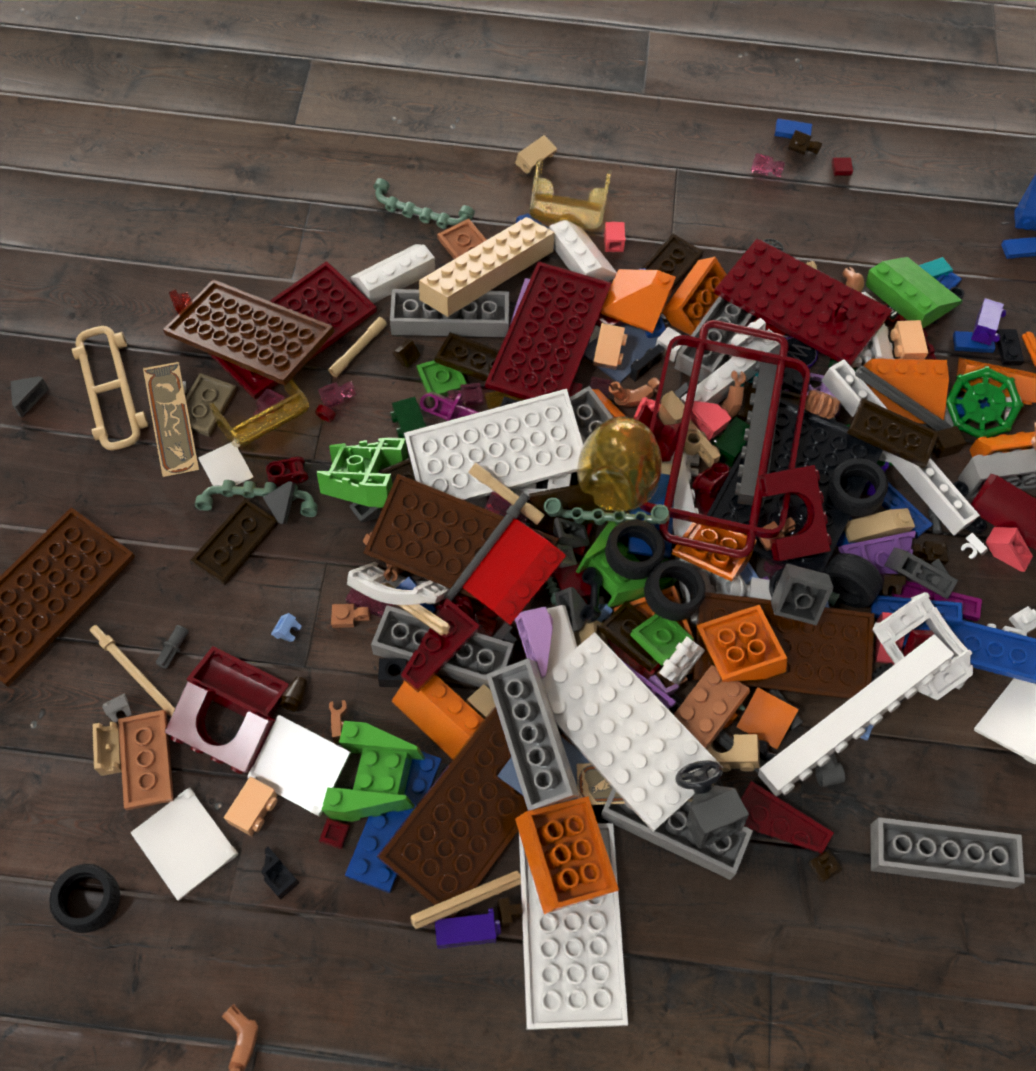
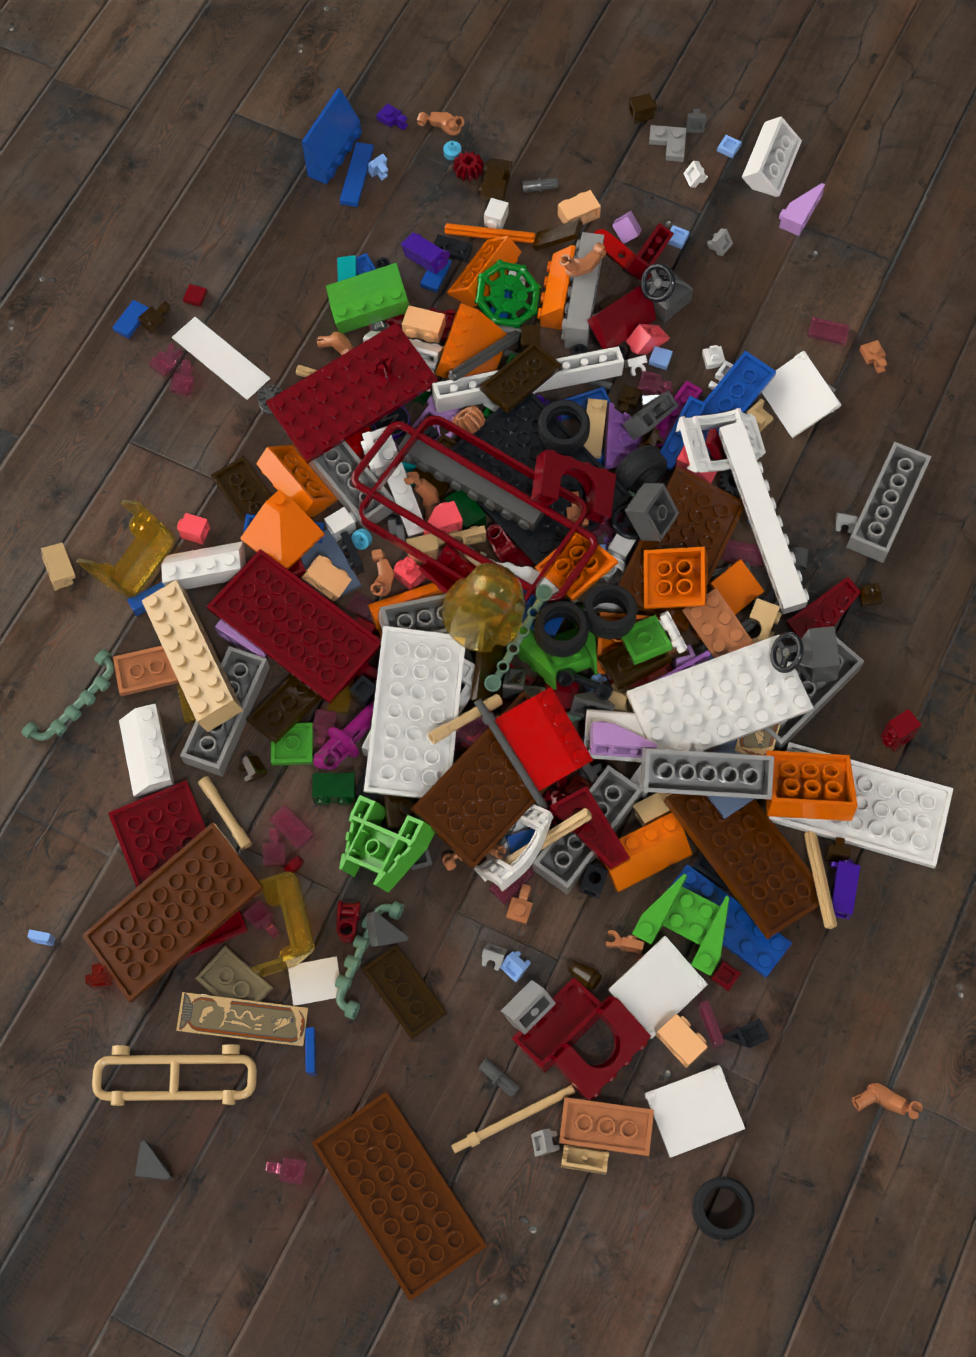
camera: 65 degrees left, 5 degrees up
(45, 499) = (290, 1171): none -> clear pink plate
(155, 481) = (310, 1051): none -> blue tile
(202, 253) = (41, 937): none -> light blue tile
(244, 649) = (528, 1007): none -> light grey brick
(276, 831) = (710, 1024): none -> clear pink tile
(291, 603) = (494, 953): none -> light grey tile
(360, 400) = (291, 827): none -> clear pink plate
(659, 366) = (361, 539): none -> medium azure tile
(670, 940) = (900, 730): none -> dark red brick
(753, 185) = (183, 381): none -> clear pink plate
(792, 206) = (221, 358): none -> white sticker
(810, 711) = (746, 552): none -> clear pink tile
(901, 808) = (849, 520): none -> light grey tile
(962, 568) = (653, 382): none -> clear pink plate
(980, 685) = (762, 417): none -> tan panel
(995, 569) = (660, 357): none -> light blue tile

